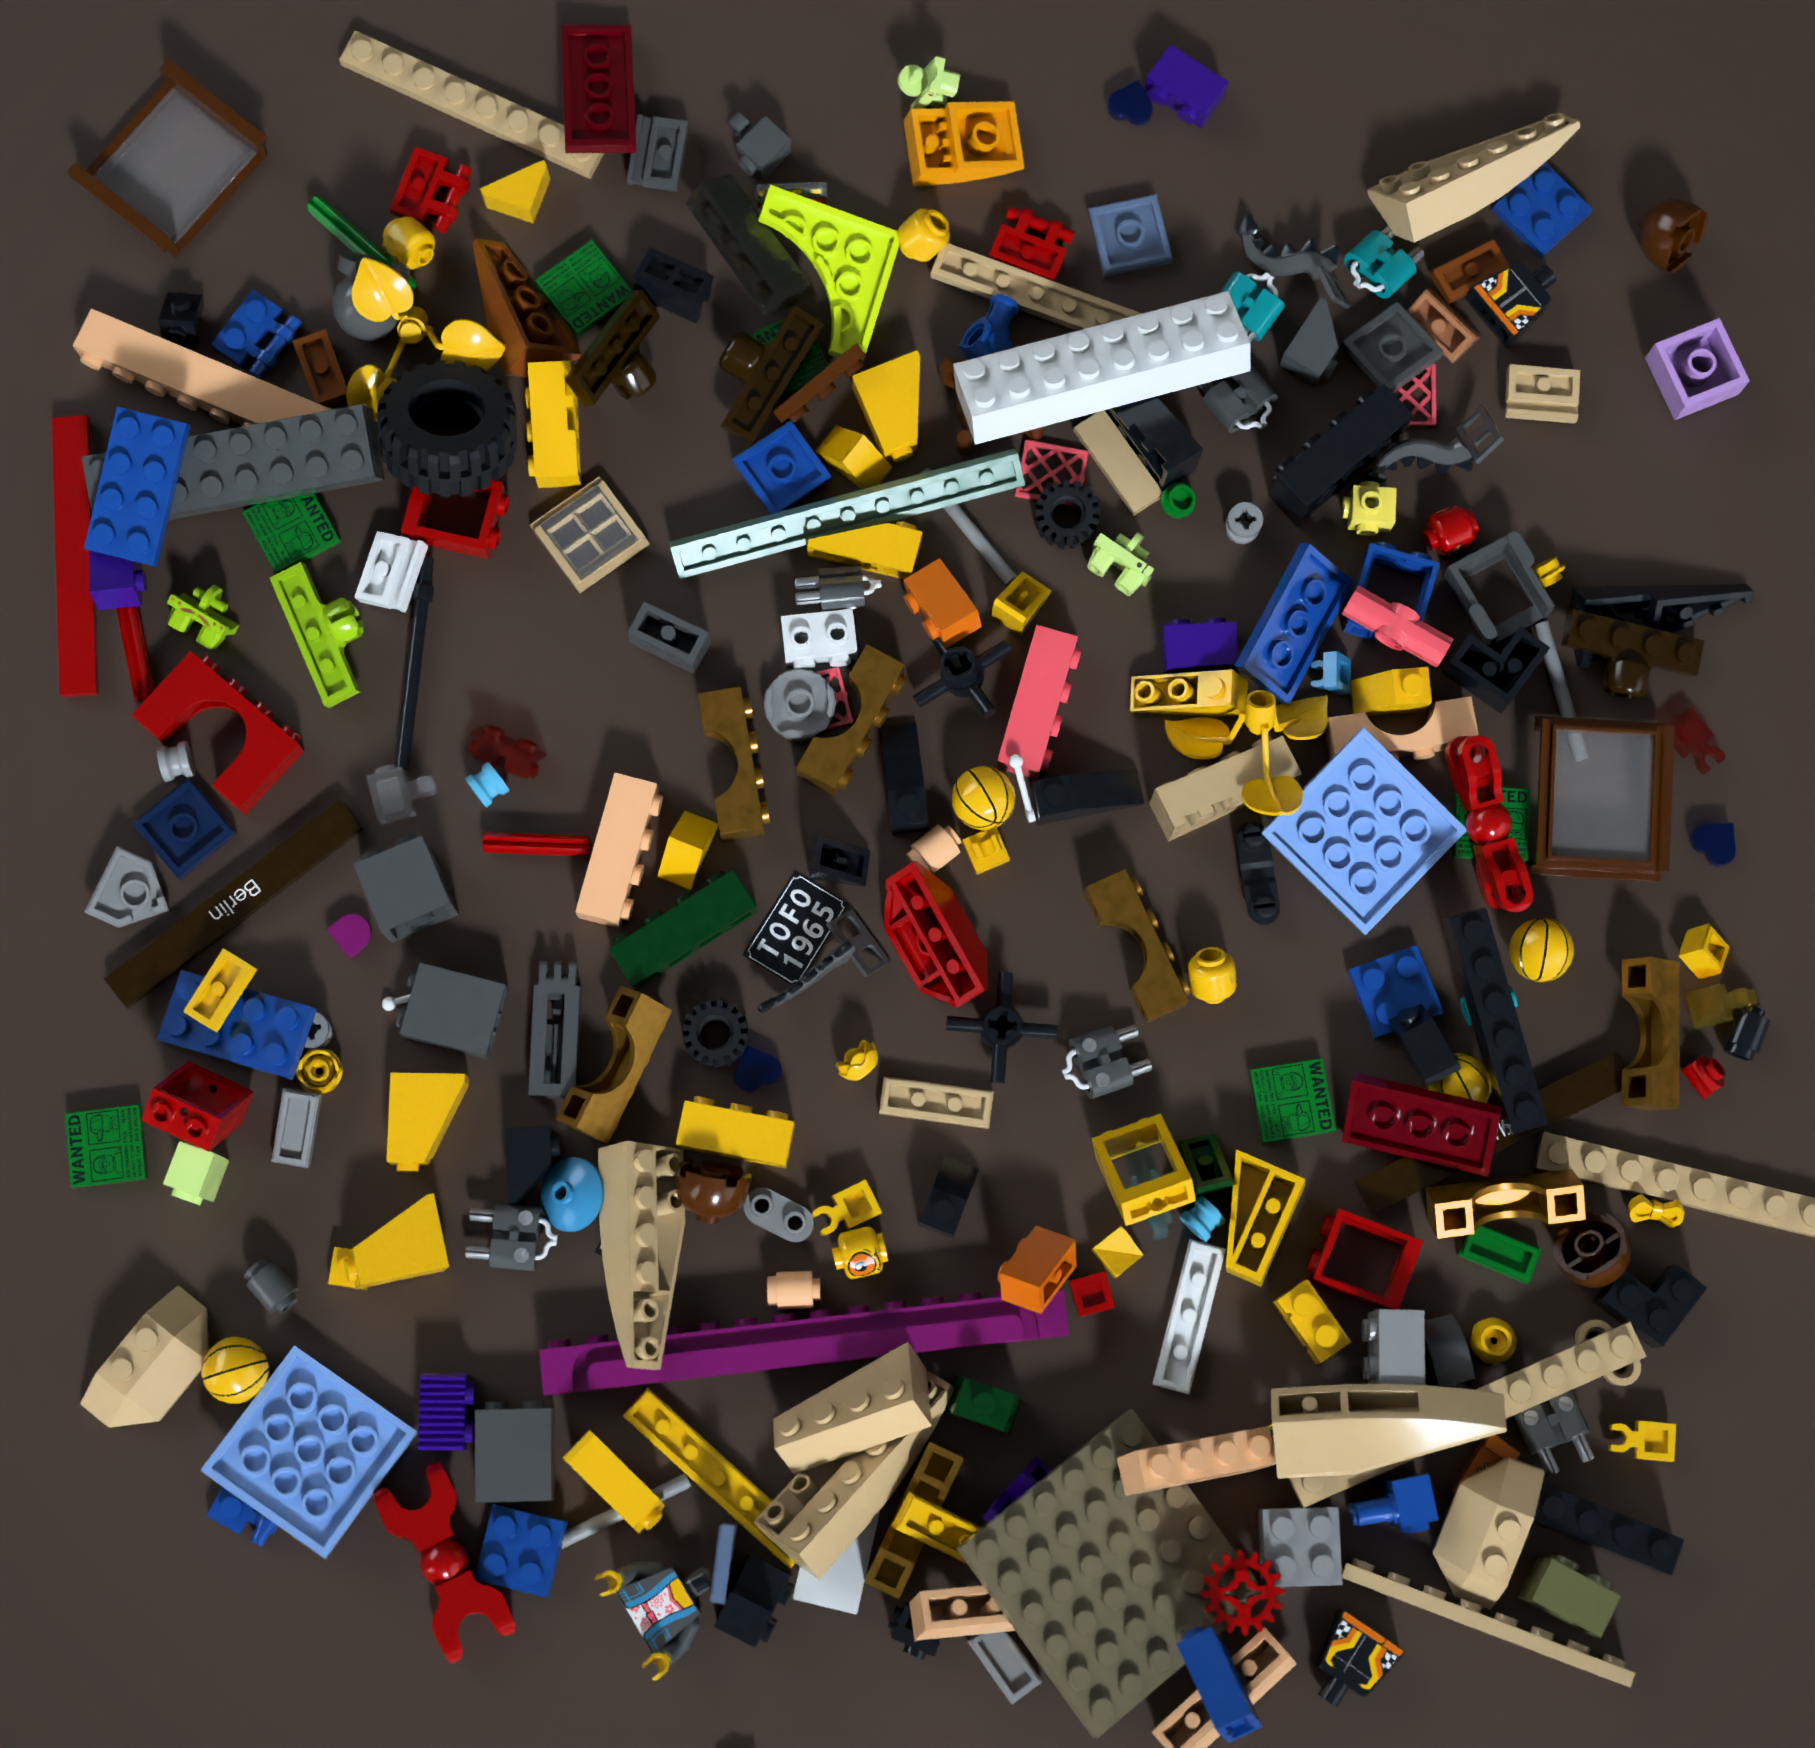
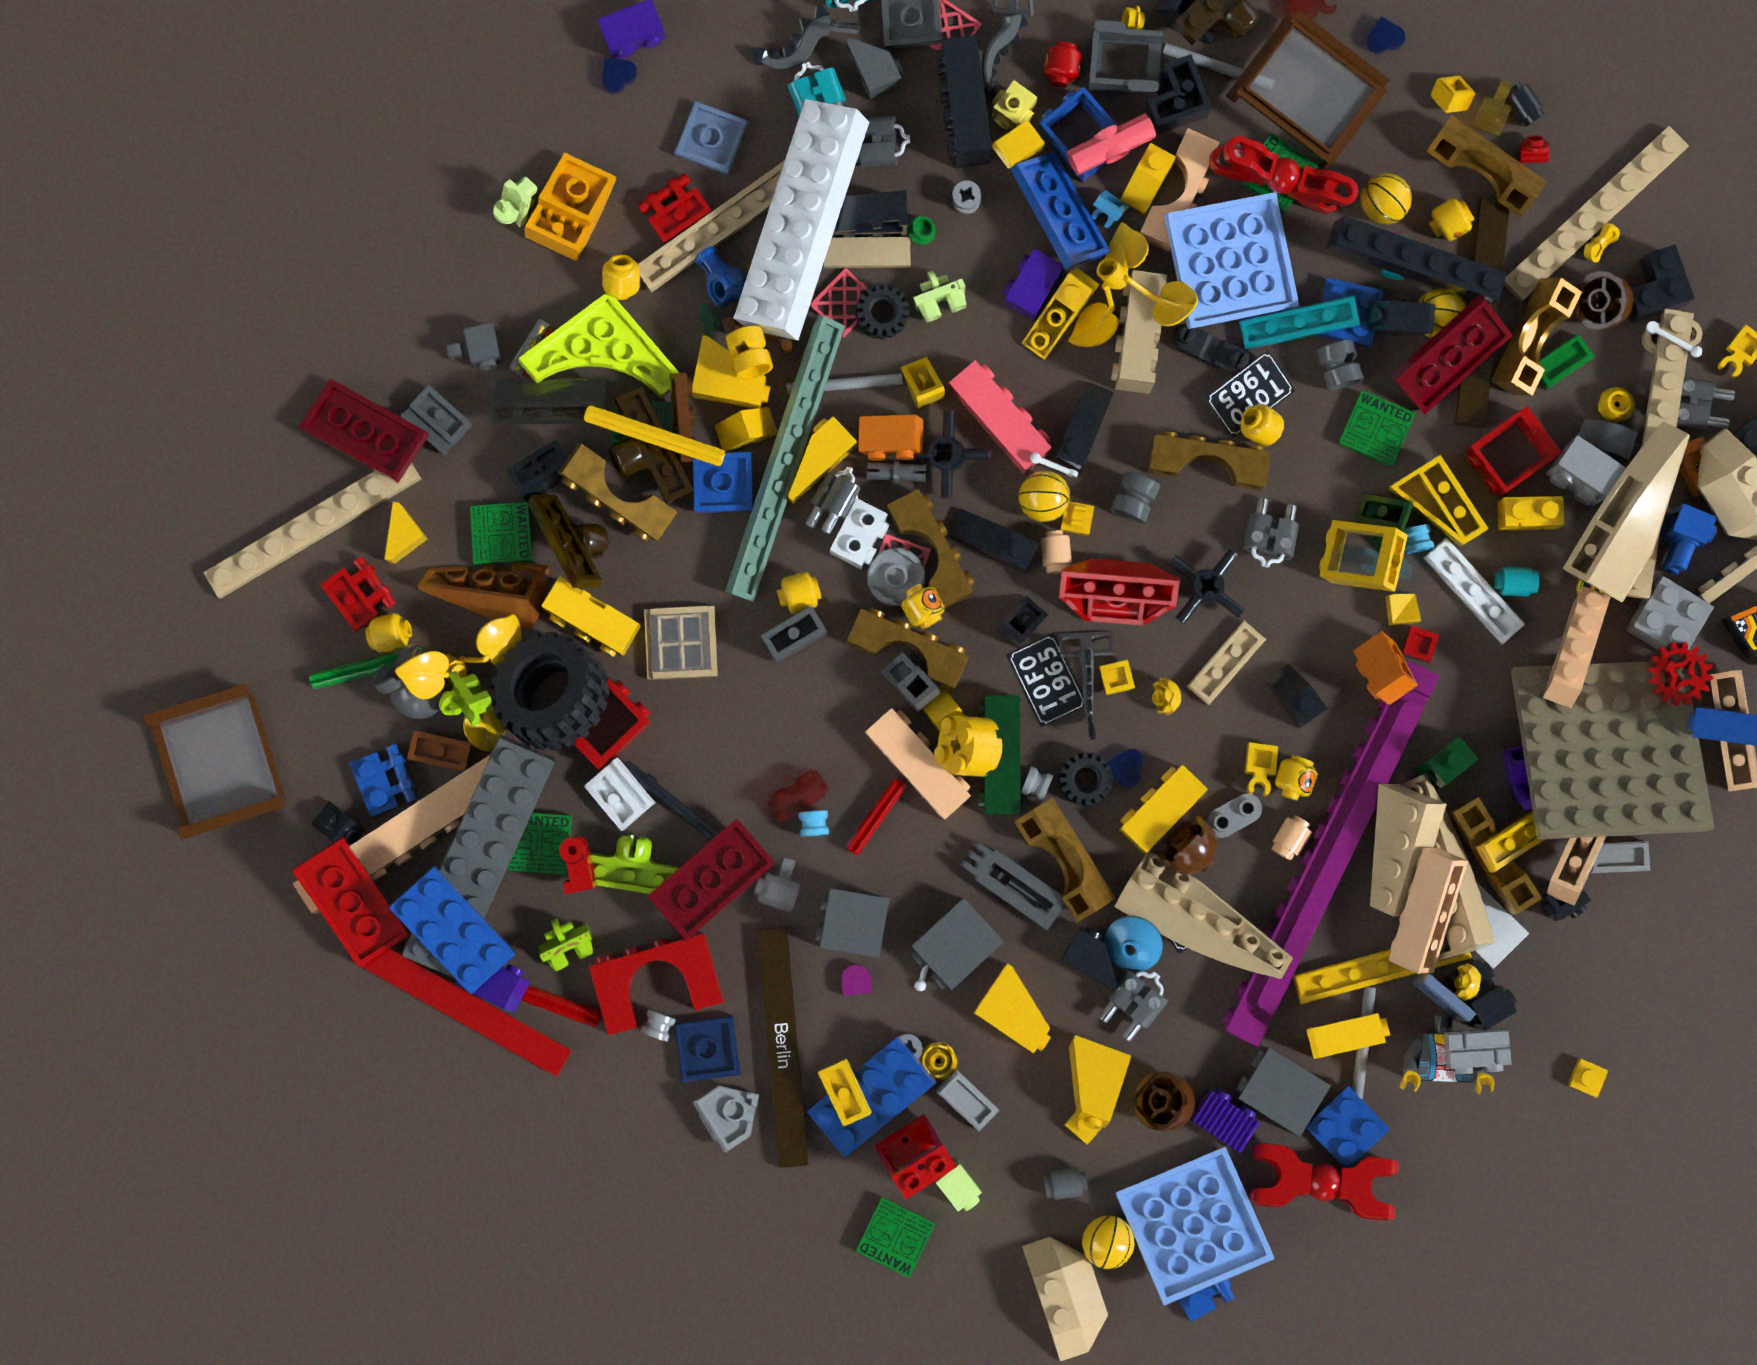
camera: 55 degrees left, 5 degrees up
(105, 370) = (350, 901): none -> red plate
(289, 573) = (579, 865): none -> red leg
(358, 715) = (711, 880): none -> dark red plate
(388, 353) = (465, 698): none -> lime hips
(422, 1333) = (1164, 1101): none -> reddish brown cylinder
(666, 884) = (968, 746): none -> yellow brick
(676, 985) = (1036, 784): none -> light grey wheel
(687, 1632) = (1477, 1049): none -> light grey brick
(697, 321) = (586, 471): none -> pearl gold arch
(697, 787) = (910, 682): none -> dark grey brick
(718, 615) = (799, 592): none -> yellow head
(753, 1574) = (1467, 982): none -> yellow plate
(779, 365) = (654, 435): none -> yellow axle
(784, 747) = (922, 606): none -> yellow head
(804, 1481) = (1428, 910): none -> light nougat brick
(844, 997) = (1116, 677): none -> yellow plate
(910, 635) = (896, 471): none -> dark grey pin
(925, 405) = (747, 348): none -> yellow wheel
(937, 349) = (709, 320): none -> clear green plate
(1041, 894) = (1134, 500): none -> dark grey wheel
(1228, 1354) = (1516, 581): none -> teal brick
(1254, 943) = (1255, 384): none -> black sticker
(1330, 535) = (1019, 145): none -> yellow slope
(1332, 1015) = (1340, 365): none -> dark grey wheel
(1348, 946) = (1299, 322): none -> teal tile
(1568, 1034) = (1451, 219): none -> yellow head
(1599, 1319) = (1653, 327): none -> white hinge

